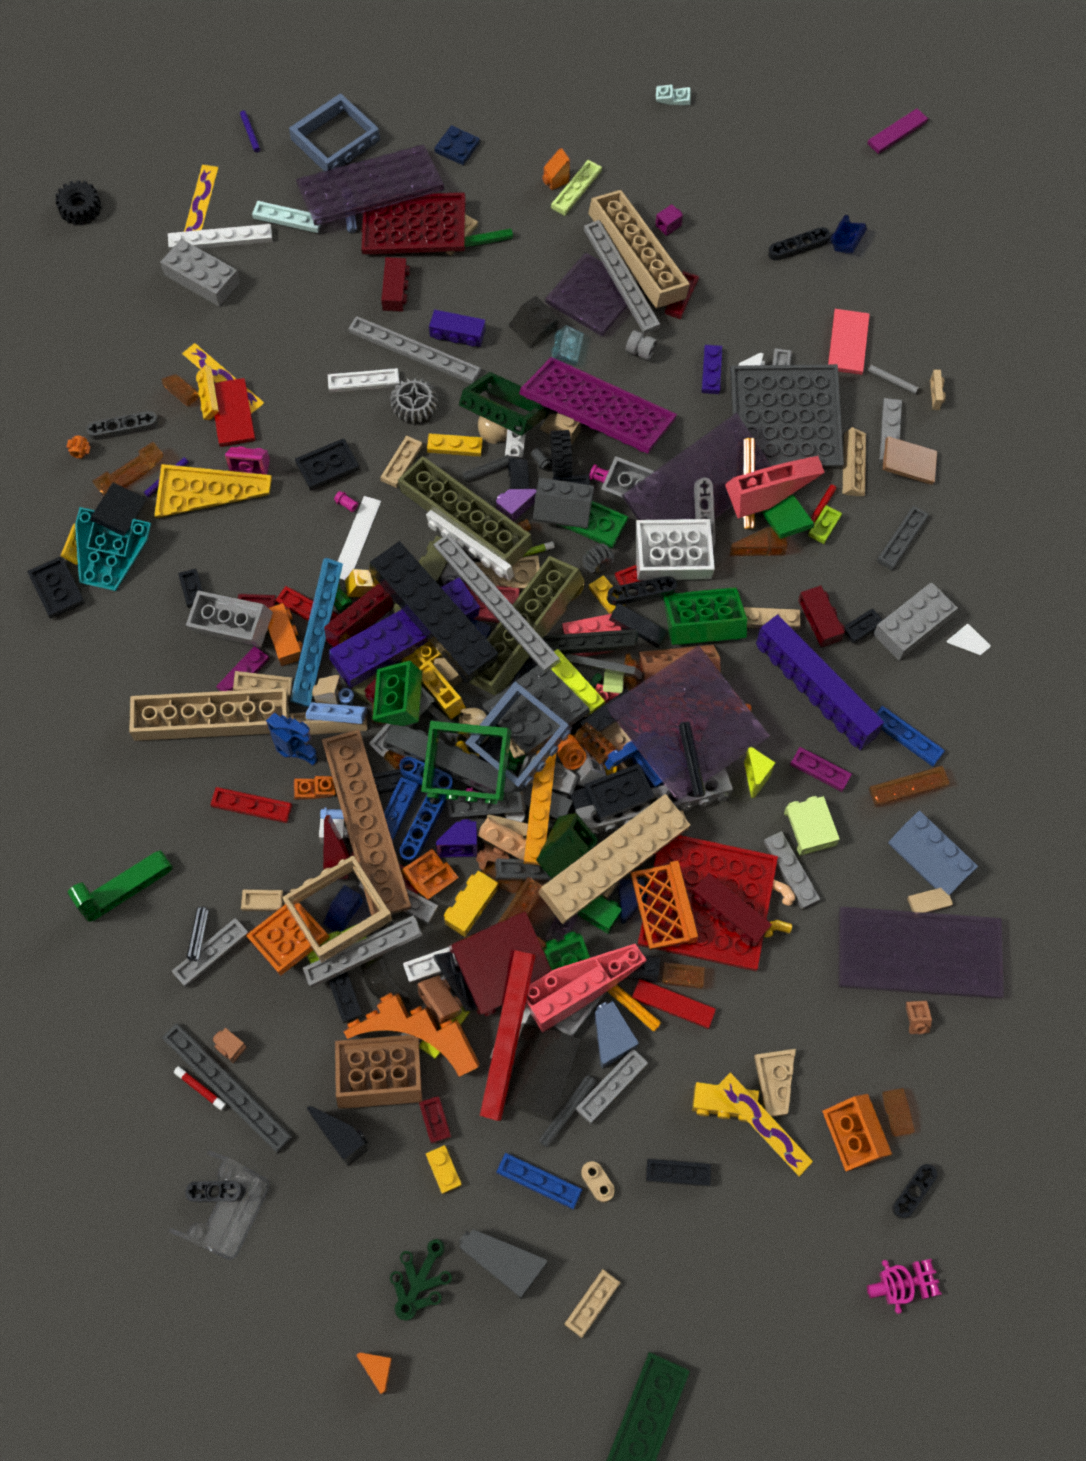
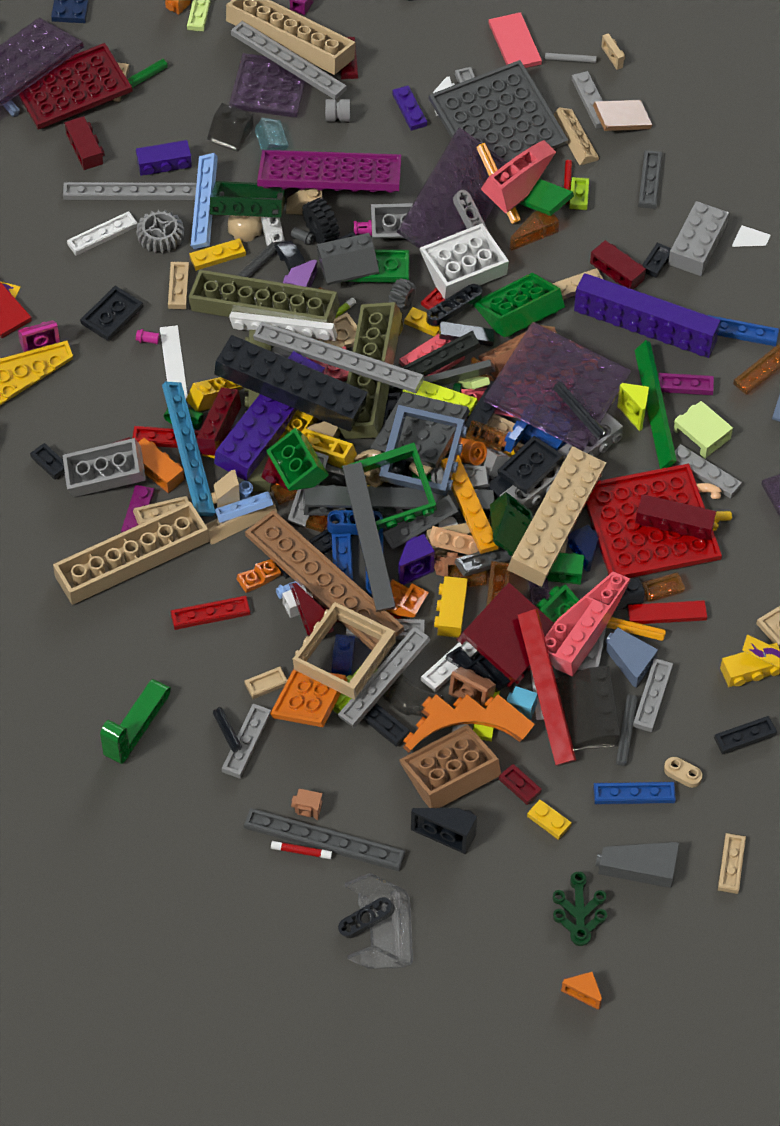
camera: 25 degrees left, 10 degrees down
(289, 738) = (218, 537): blue bracket -> none
(420, 802) = (368, 537): none -> dark grey tile
(479, 368) = (205, 183): none -> light blue plate
(482, 1035) = (524, 701): none -> medium azure brick
(681, 906) = (629, 529): orange fence -> none
(778, 780) = (655, 405): none -> green tile

